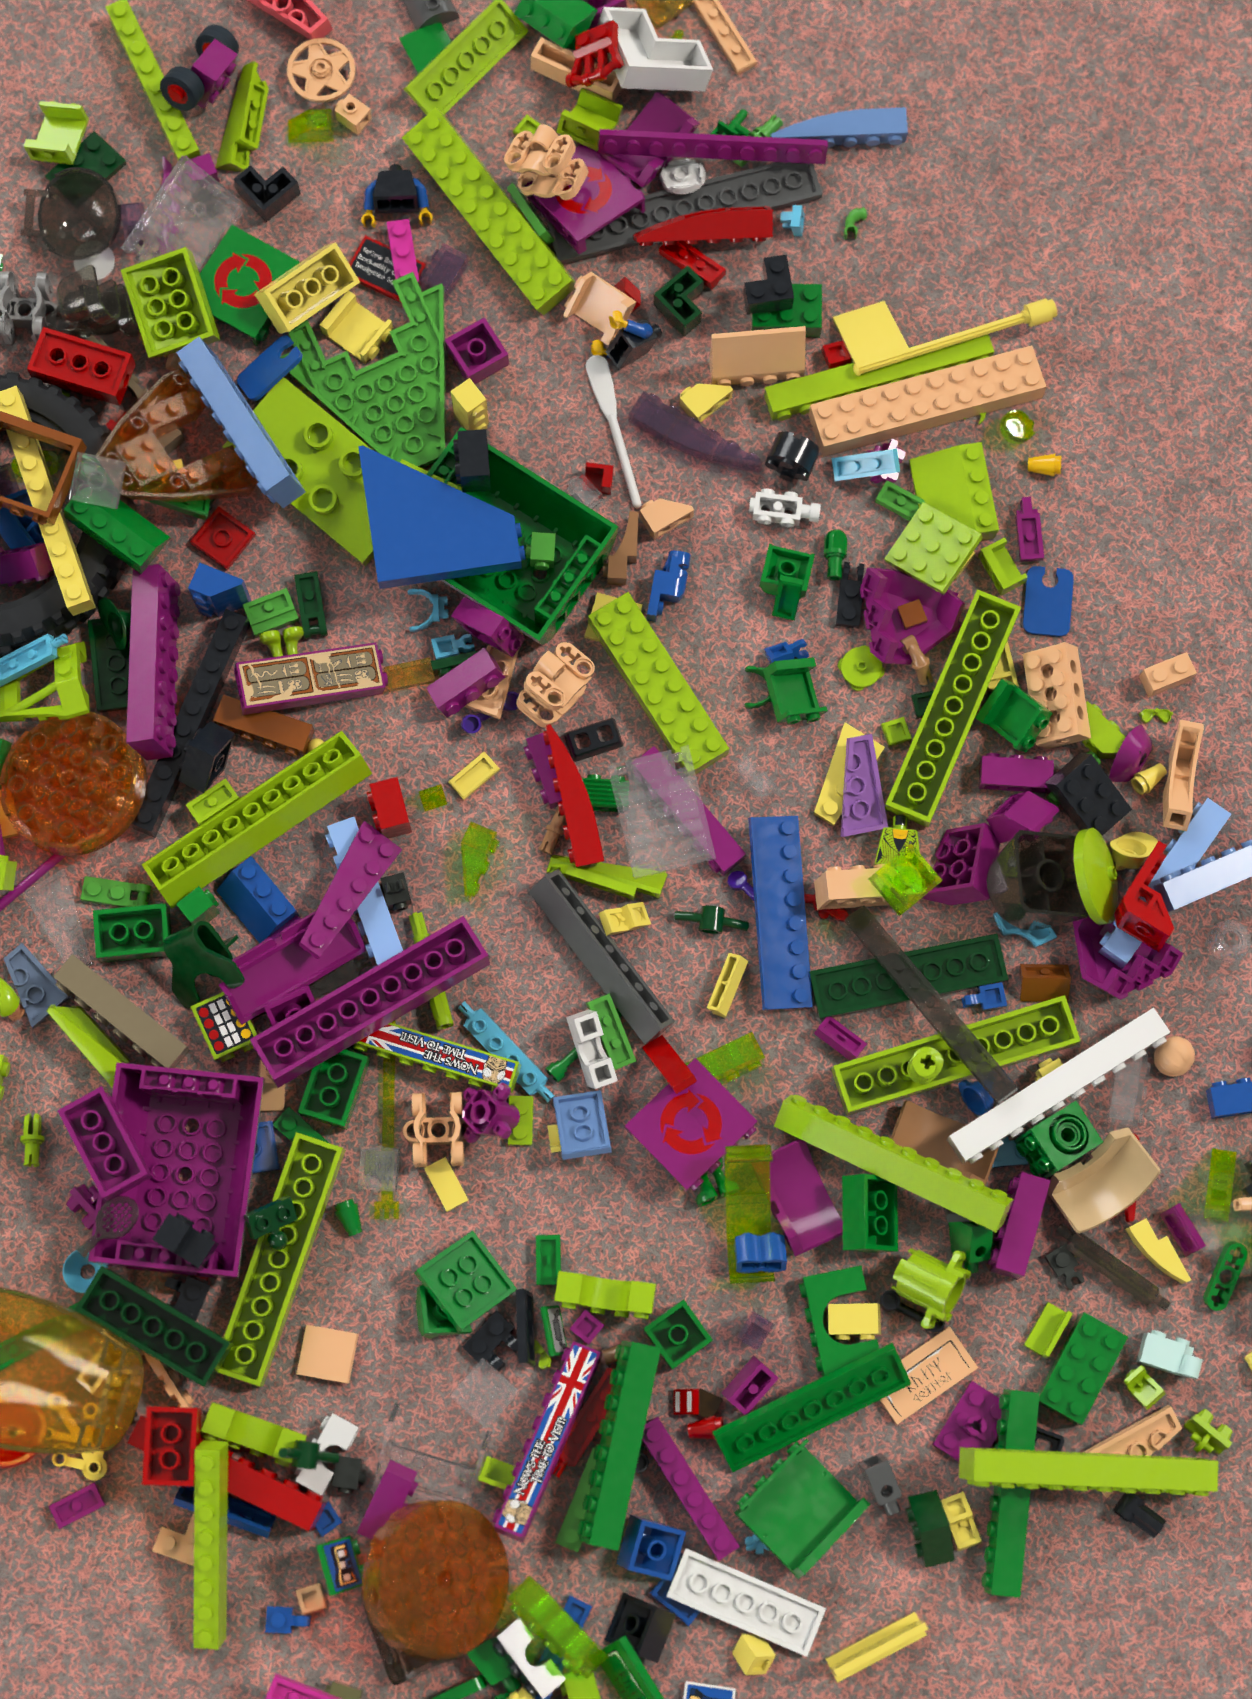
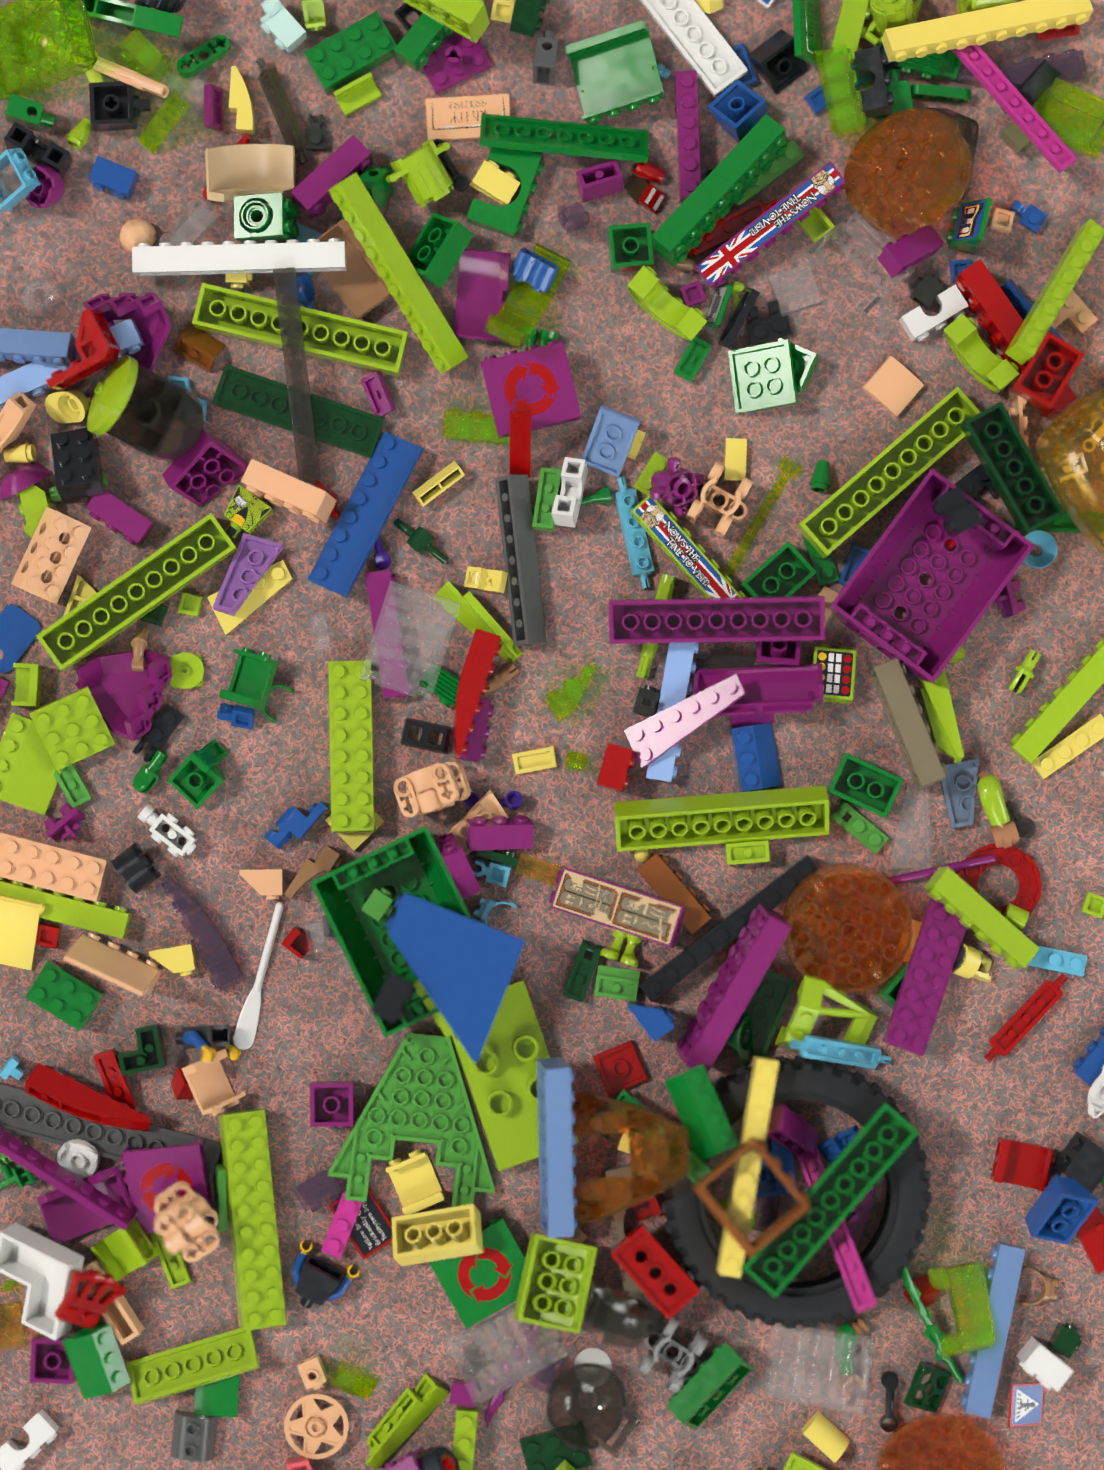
camera: 150 degrees left, 10 degrees up
(92, 1242) = (1034, 553): clear smoke piece -> none
(97, 480) = (699, 1149): clear plate -> none
(104, 1143) = (977, 620): magenta brick -> none
(196, 952) = (821, 733): dark green piece -> none
(199, 906) = (803, 774): green brick -> none
(205, 756) = (733, 890): black brick -> none
(267, 196) = (421, 1337): black brick -> none
(268, 368) = (508, 1186): blue piece -> none
(270, 1220) = (883, 498): dark green plate -> none
(307, 1454) = (951, 313): dark green piece -> none
(378, 1169) = (779, 499): clear piece -> none
(470, 406) = (366, 1054): light yellow brick -> none
(774, 291) = (68, 1008): black brick -> none
(866, 464) = (82, 826): medium azure plate -> none
(905, 879) = (259, 471): clear neon green brick -> none
(912, 614) = (120, 688): dark orange tile -> none
(916, 1068) = (332, 319): lime piece -> none
(989, 996) = (248, 360): blue plate -> none
(1014, 715) = (92, 558): green panel -> none
(1021, 812) = (138, 476): magenta slope -> none

